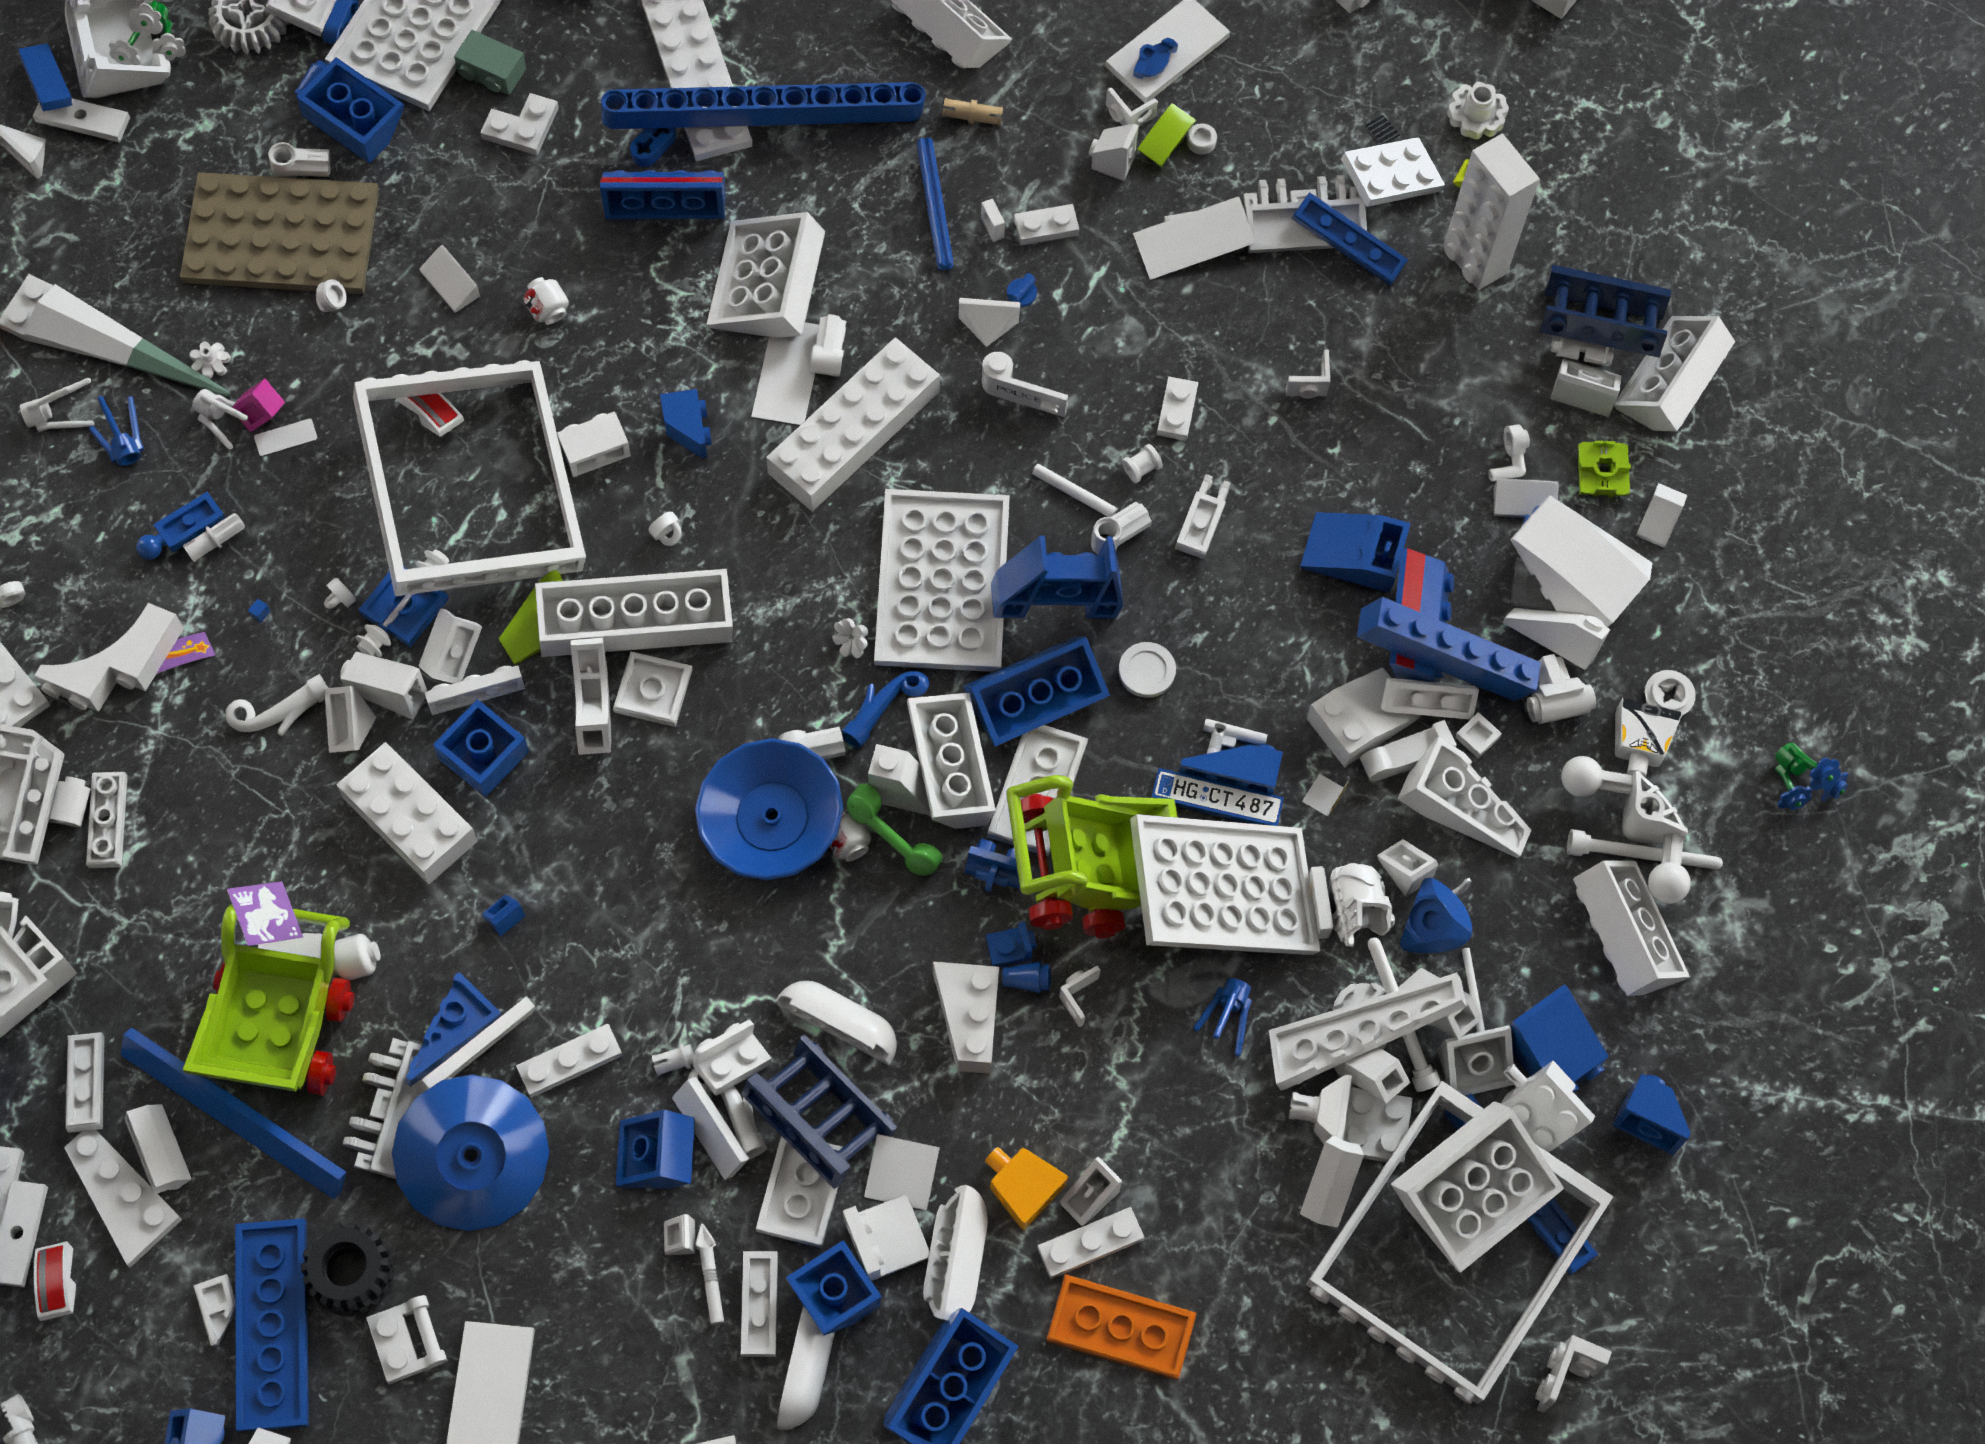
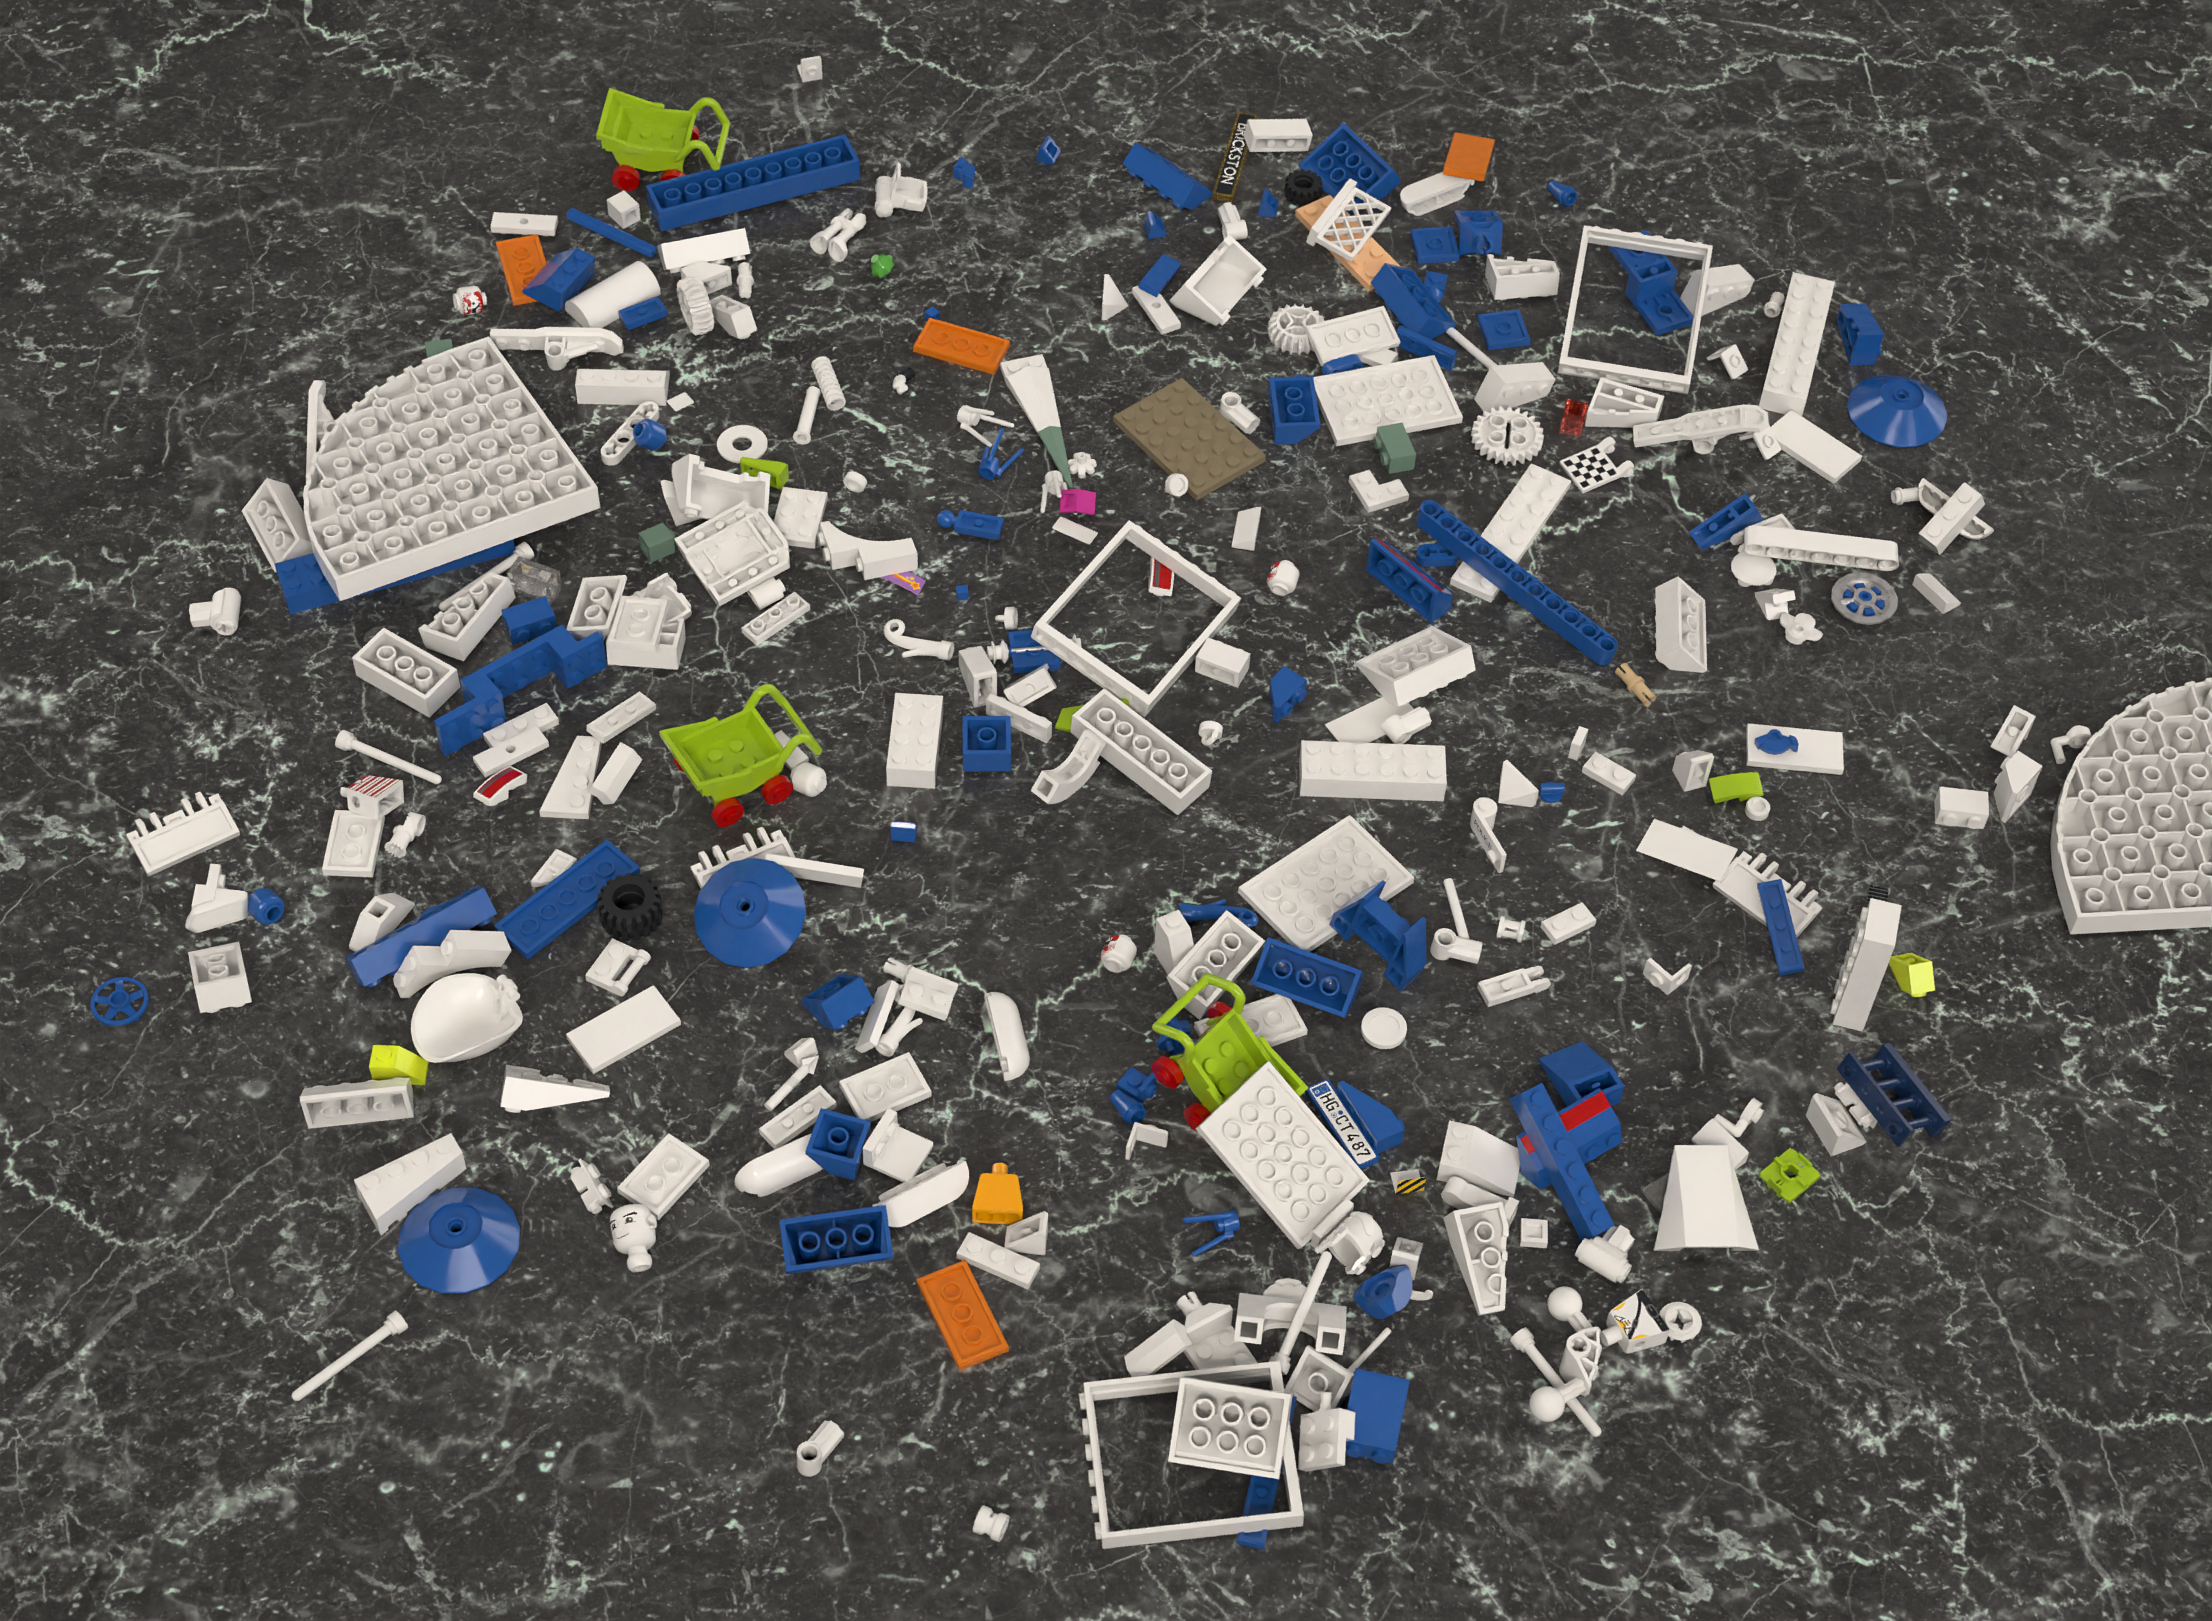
camera: 50 degrees right, 15 degrees down
(147, 20) = (1236, 286): white plant -> none
(214, 536) = (981, 541): white axle -> none
(233, 1114) = (667, 797): blue tile -> none
(264, 913) = (784, 706): medium lavender sticker -> none
(347, 718) = (942, 675): white slope -> none
(459, 1021) = (817, 849): blue wing -> none
(569, 1060) = (851, 923): white plate -> none
(652, 689) = (1109, 800): white tile -> none
(763, 780) = (1088, 883): blue dish -> none
(797, 1132) = (915, 1064): dark blue fence -> none
(825, 743) = (1148, 893): white piece -> none
(850, 637) = (1241, 867): white plant -> none
(863, 807) = (1141, 942): bright green piece -> none
(901, 1169) = (946, 1129): white sticker -> none
(935, 204) = (1556, 710): blue axle -> none
(969, 1011) = (1074, 1092): white wedge -> none
(1122, 114) = (1725, 759): white bracket -> none
(1229, 735) = (1391, 1101): white hose -> none
(1342, 1034) = (1262, 1290): white wing -> none
(1392, 172) = (1839, 909): white plate -> none
(1429, 698) = (1525, 1184): white plate -> none
(1477, 110) = (1950, 933): white plant -> none
(1565, 633) = (1651, 1230): white slope -> none
(1583, 1360) = (1171, 1565): white bracket -> none
(1630, 927) = (1497, 1409): white slope -> none
(1653, 1115) = (1382, 1500): blue slope -> none
(1661, 515) = (1797, 1229): white slope -> none
(1669, 386) = (1902, 1168): white slope -> none
(1824, 775) = (1711, 1432): plant -> none

